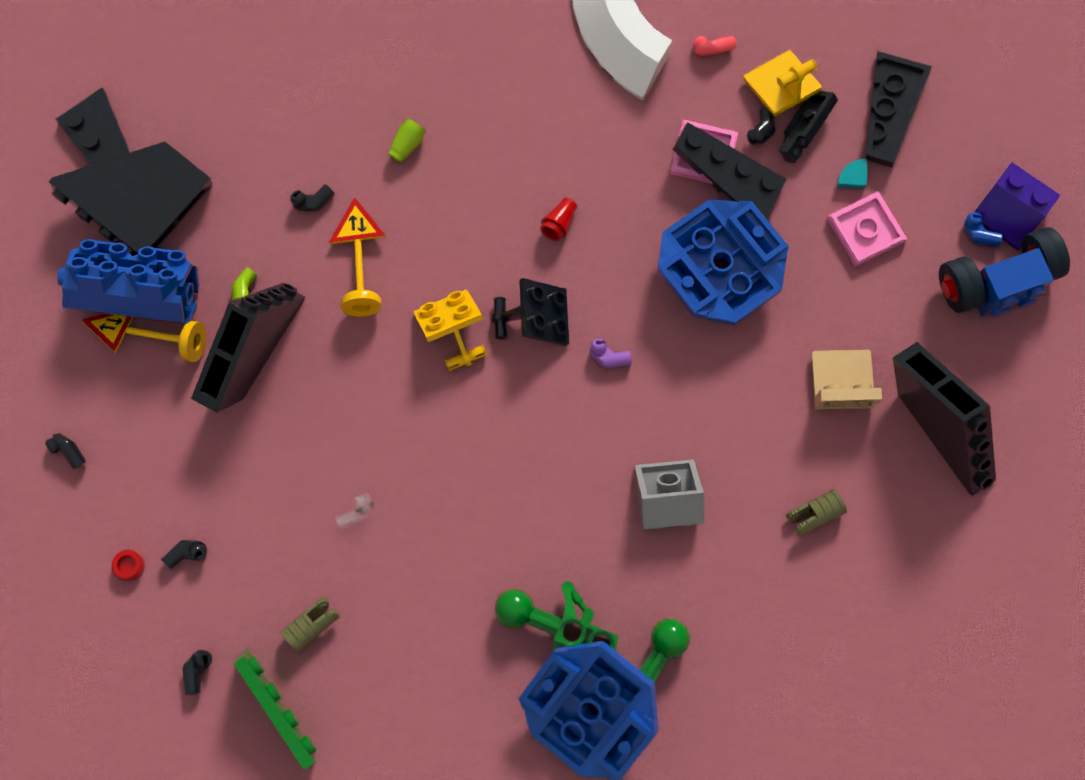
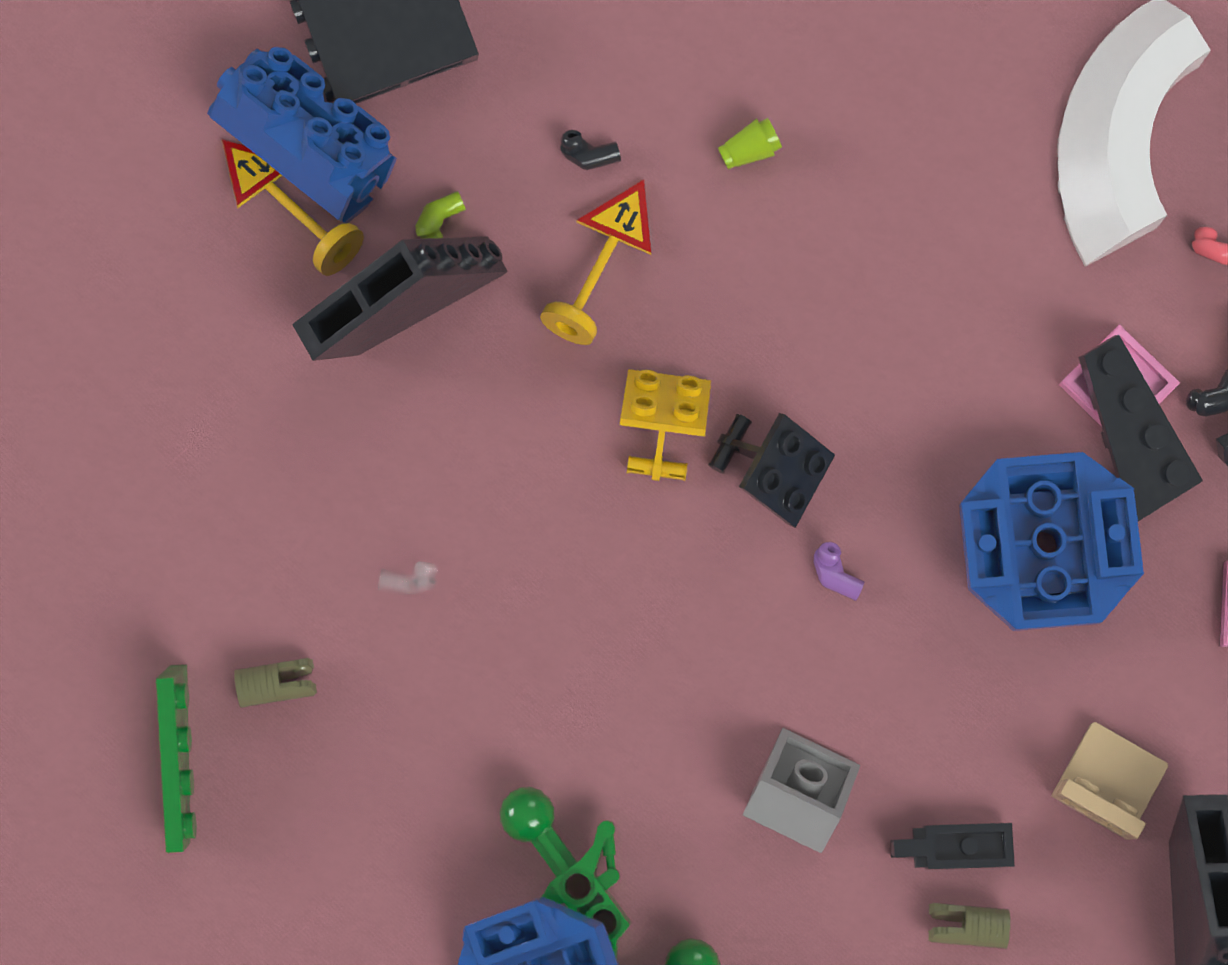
camera: 30 degrees right, 5 degrees up
(68, 448) = (116, 292): black arm -> none
(128, 565) = (104, 478): red tile -> none
(185, 549) = (182, 501): black arm -> none
(194, 669) = (110, 651): black arm -> none
(557, 222) = (878, 362): red cone -> none
(780, 470) = (958, 846): none -> black hinge

